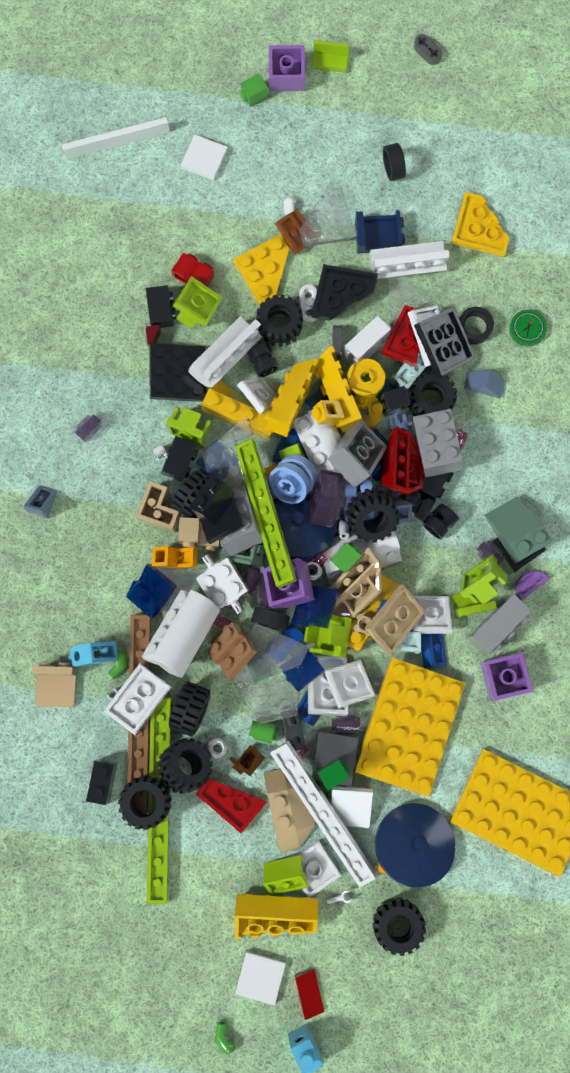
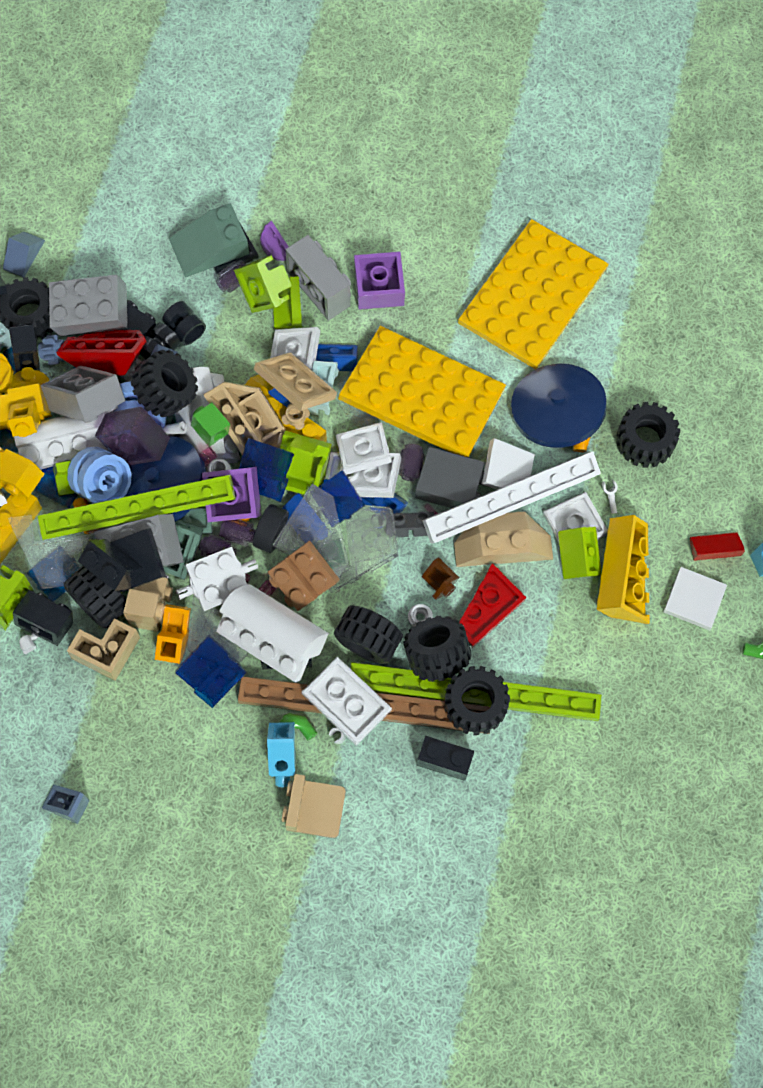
camera: 85 degrees left, 10 degrees down
(264, 732) = (408, 557): bright green brick -> none
(333, 773) = (467, 471): green brick -> none

